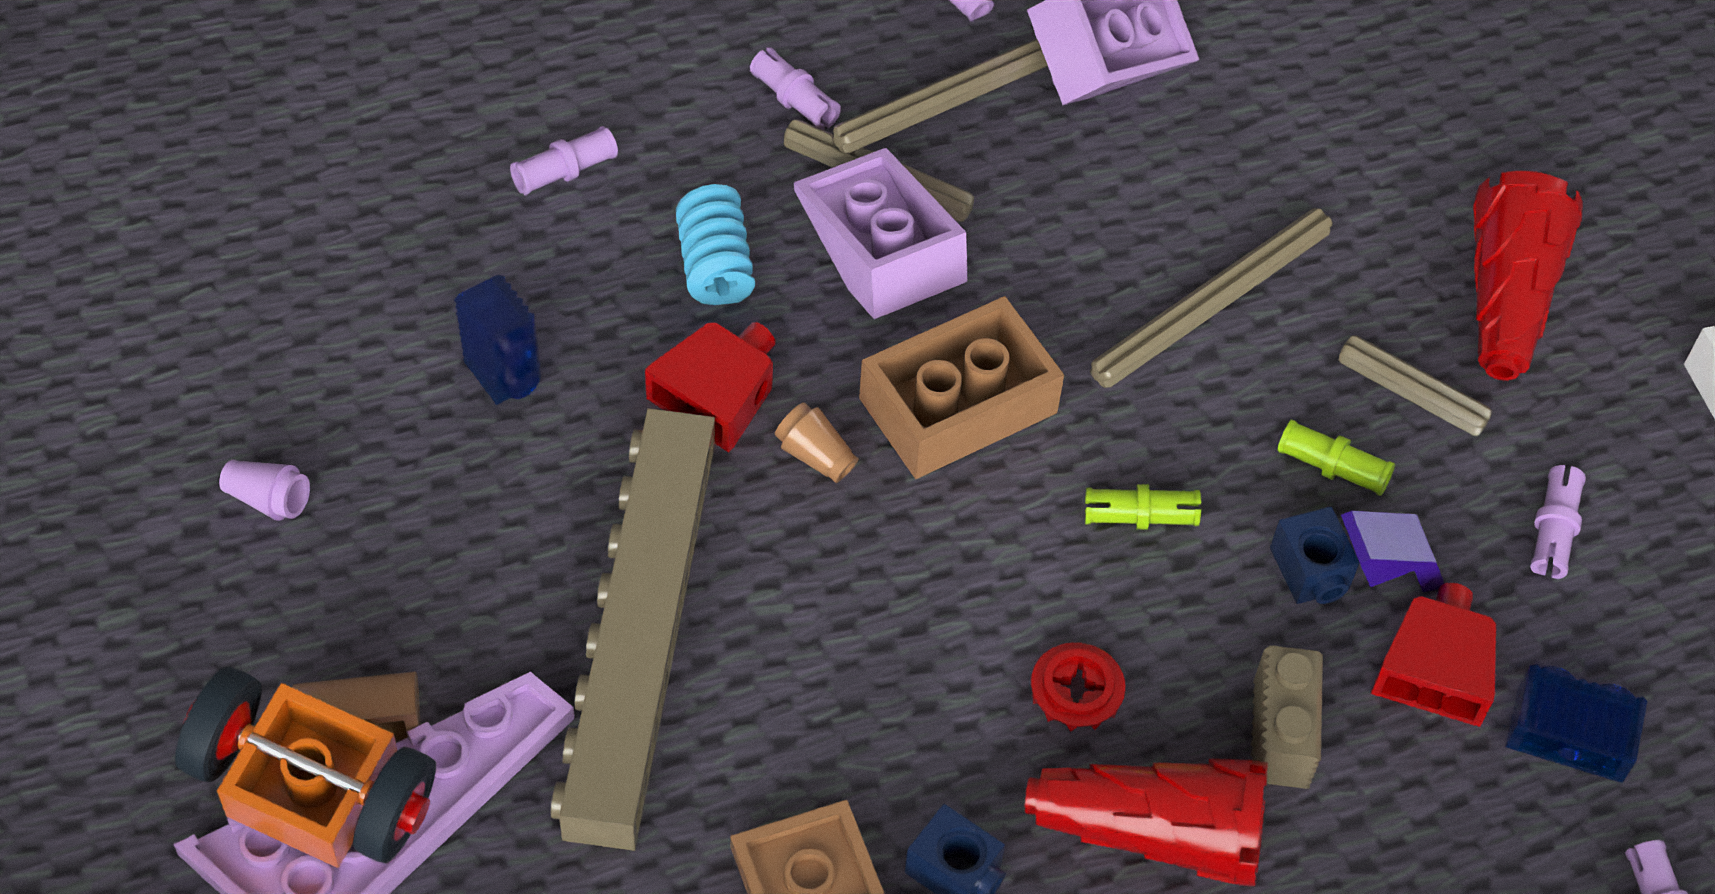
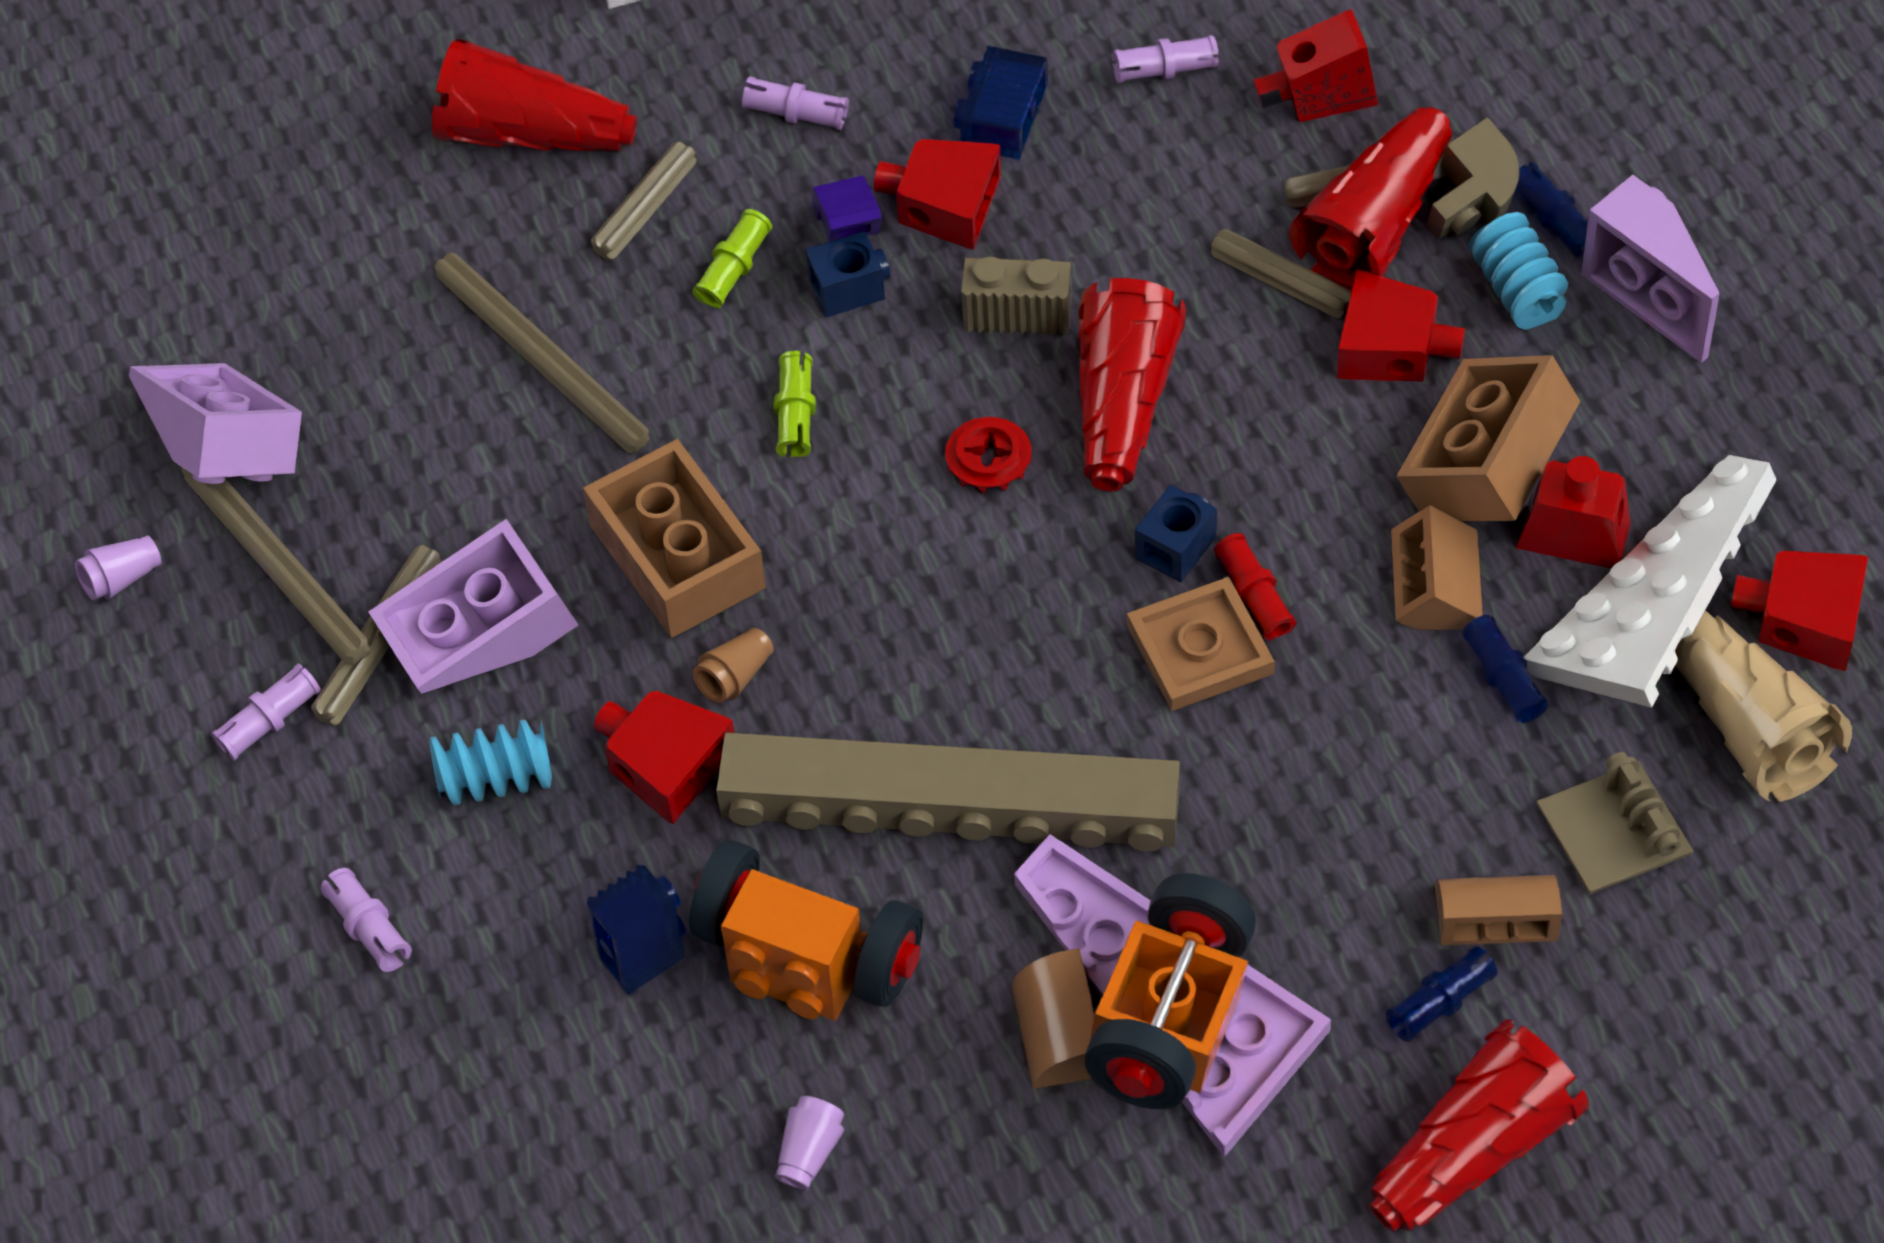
camera: 85 degrees left, 0 degrees up
(464, 464) = (799, 941): none -> orange brick

